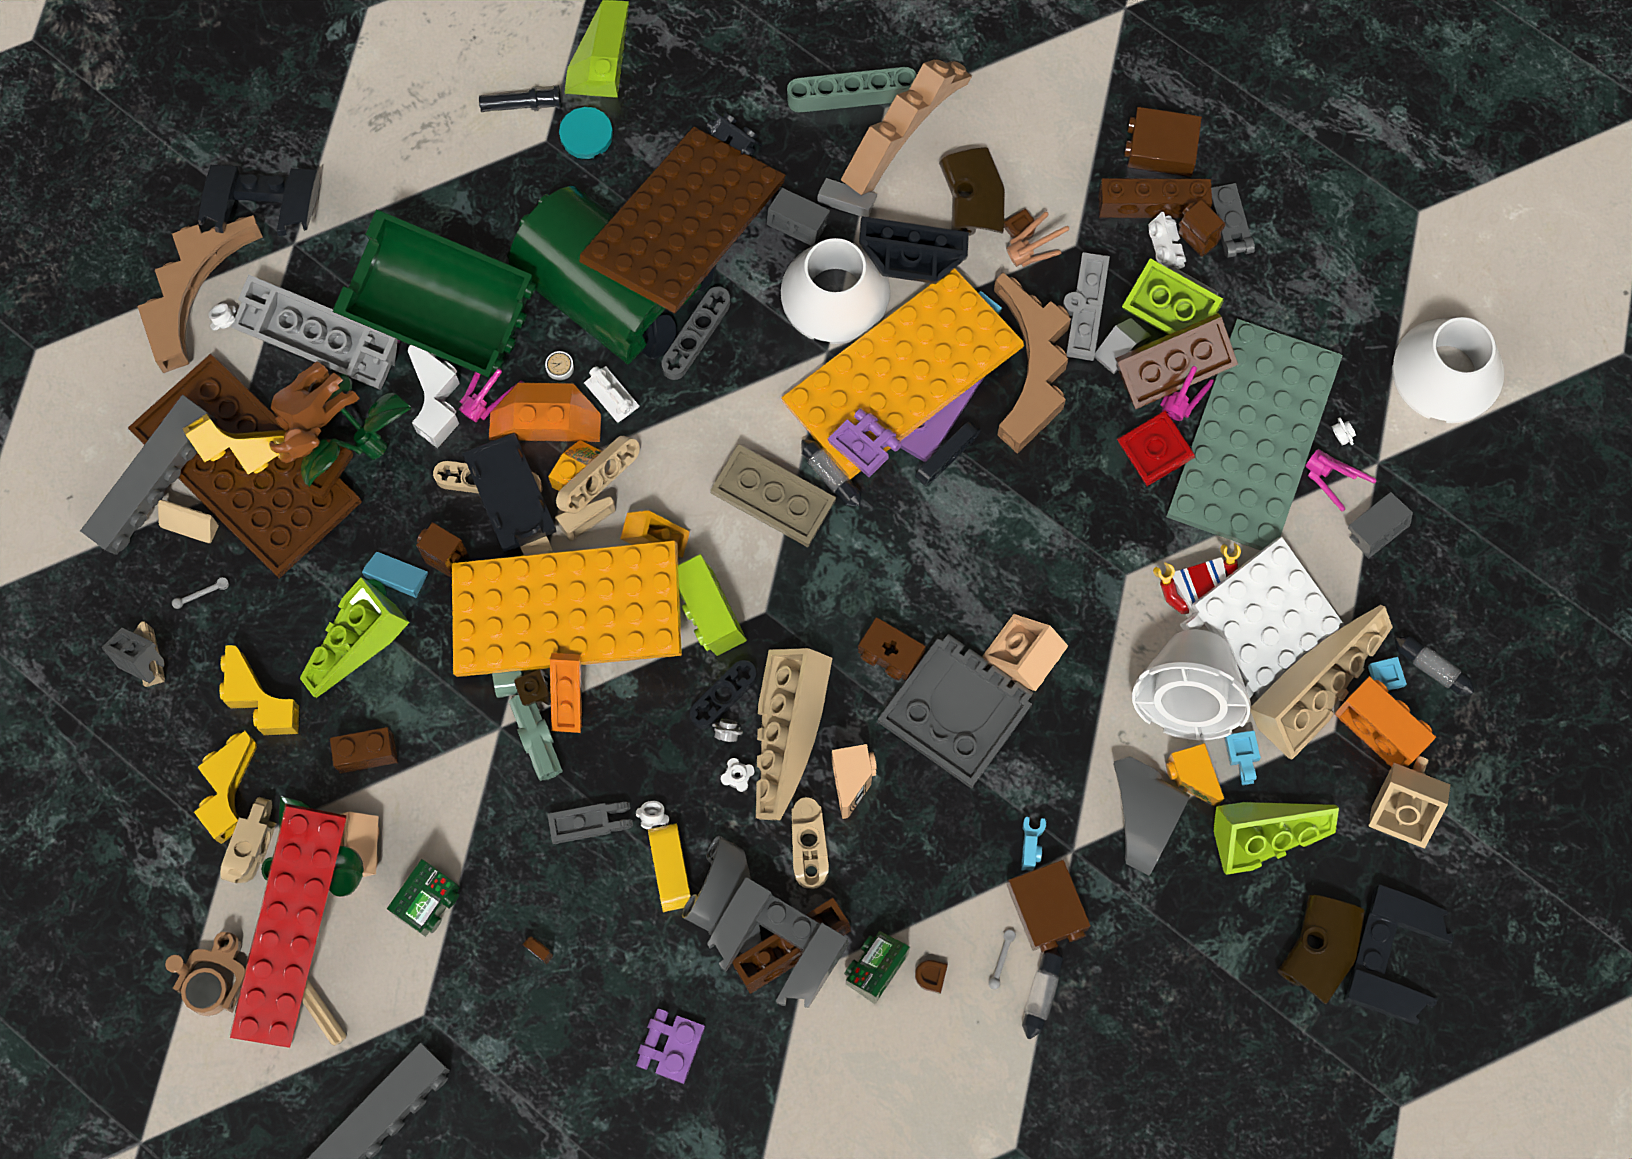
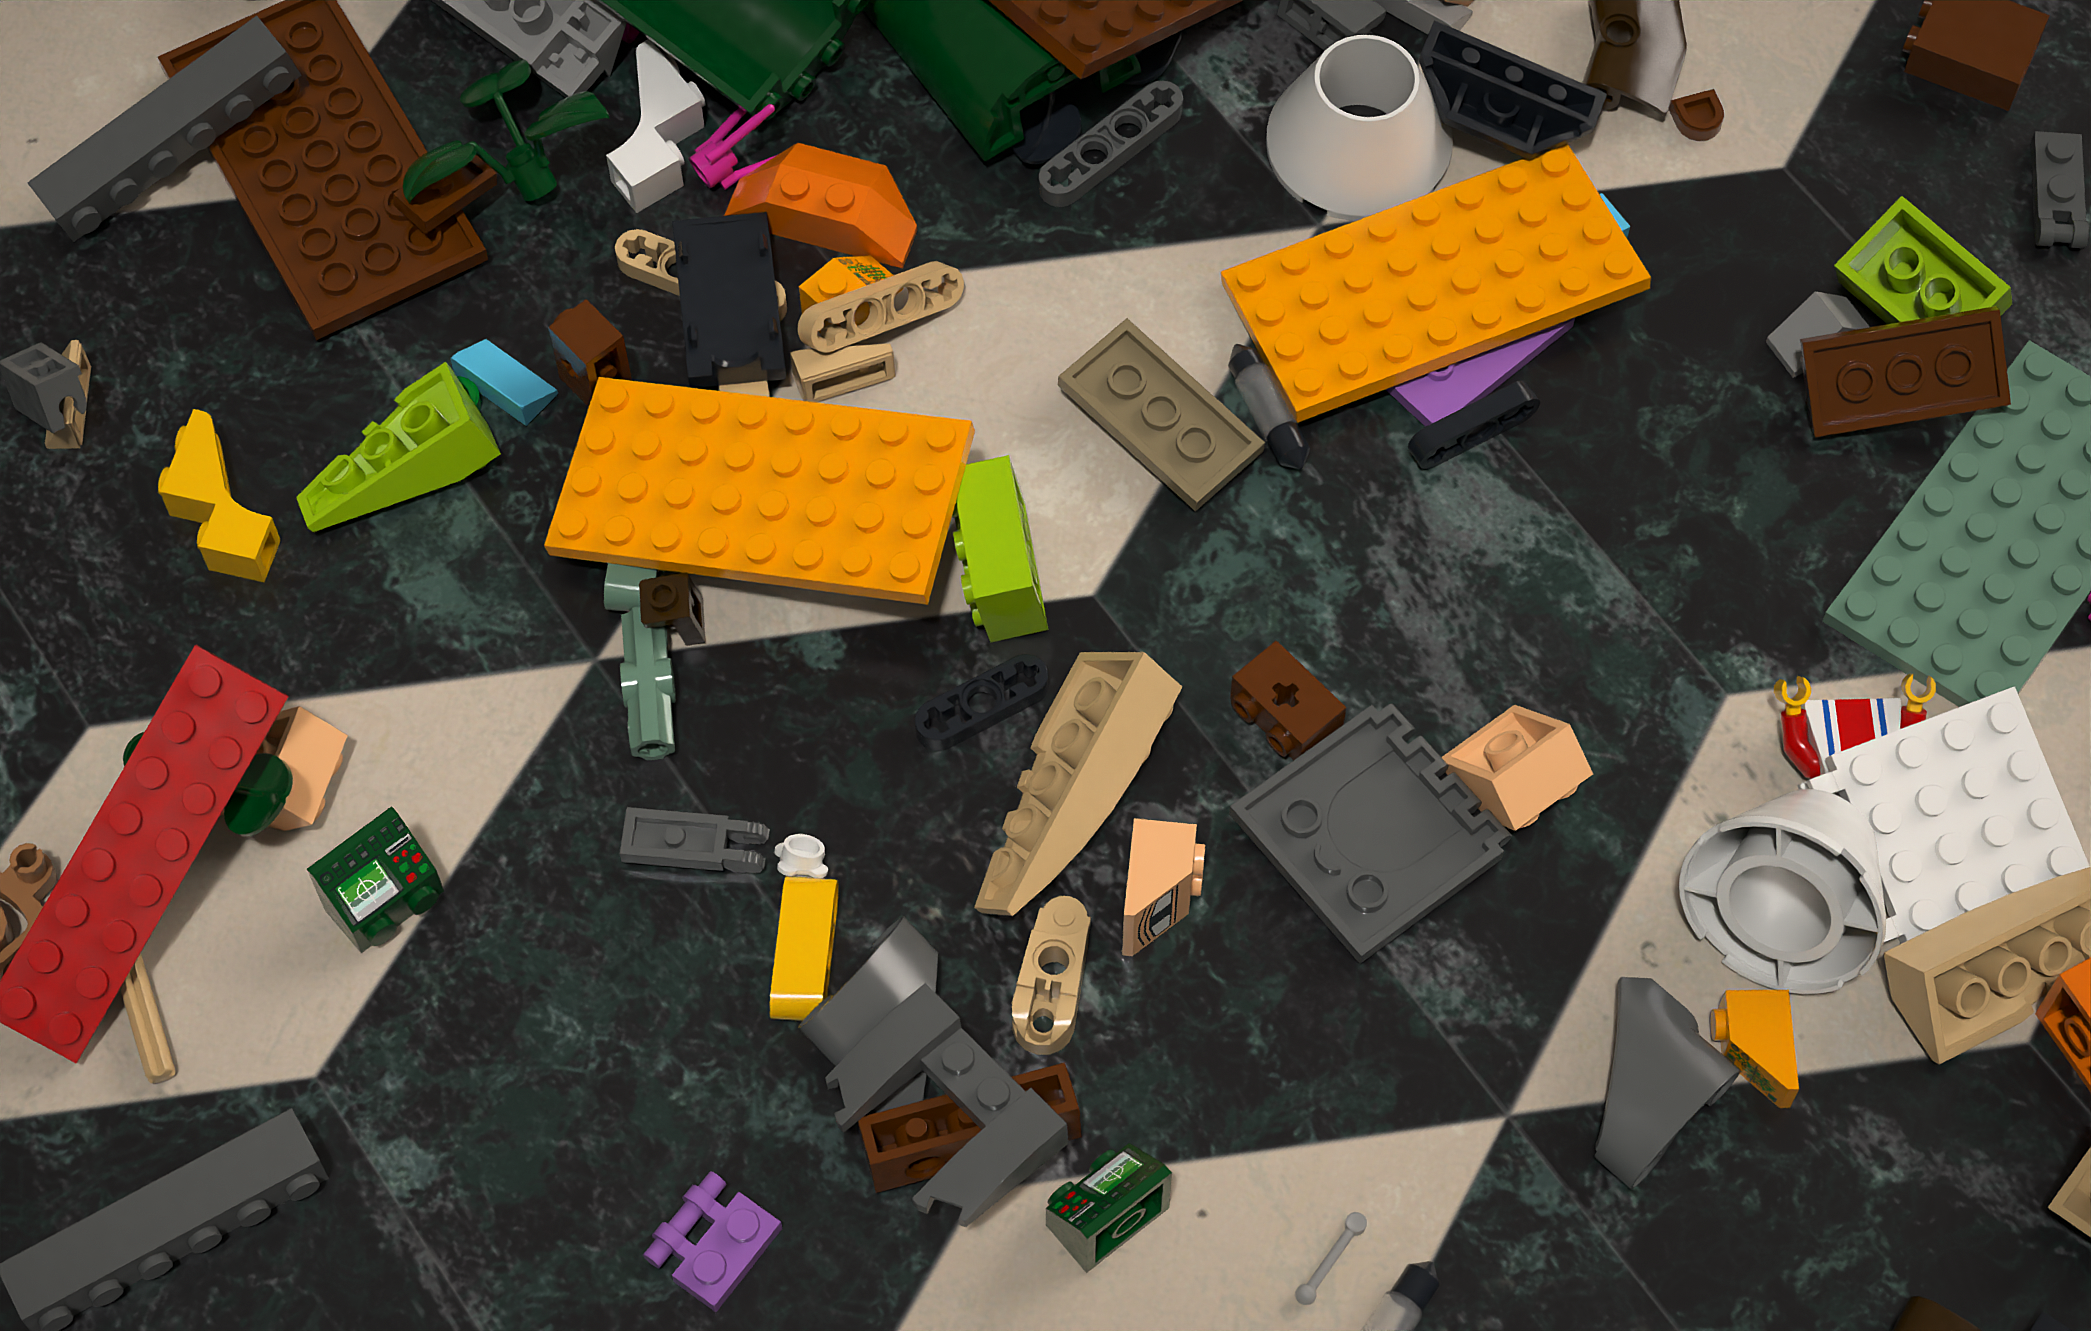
camera: 15 degrees right, 10 degrees down
(186, 521) = (200, 216): tan slope -> none
(222, 583) = (223, 325): light grey hinge -> none
(224, 772) = (126, 605): yellow arch -> none
(248, 844) = (125, 709): tan piece -> none
(249, 448) = (334, 127): yellow arch -> none
(304, 410) = (437, 92): dark orange animal -> none
(363, 750) = (359, 629): reddish brown brick -> none
(538, 949) = (540, 1020): reddish brown tile -> none
(559, 365) = (873, 138): tile -> none
(566, 692) = (718, 620): orange plate -> none
(611, 393) = (942, 197): white hinge -> none
(649, 527) = (942, 398): light orange slope -> none
(727, 730) = (969, 757): light grey plate -> none
(737, 782) = (970, 847): white plate -> none
(859, 448) = (1325, 368): medium lavender plate -> none
(931, 975) = (1199, 1250): reddish brown tile -> none
(1021, 251) = (1686, 148): nougat plant -> none
(1031, 851) = (1433, 1090): medium azure plate -> none
(1040, 329) = (1655, 378): medium nougat arch -> none
(1048, 906) = (1438, 1188): reddish brown brick -> none
(1086, 306) = (1774, 259): light grey hinge -> none
(1150, 197) = (1937, 122): reddish brown brick -> none
(1156, 448) = (1833, 504): red tile -> none
(1163, 232) = (1936, 180): white hinge -> none
(1177, 404) = (1888, 447): dark pink plant -> none
(1201, 227) = (2003, 181): reddish brown brick -> none
(1243, 750) = (1856, 1028): medium azure plate -> none
(1258, 831) = (1852, 1169): lime wedge -> none

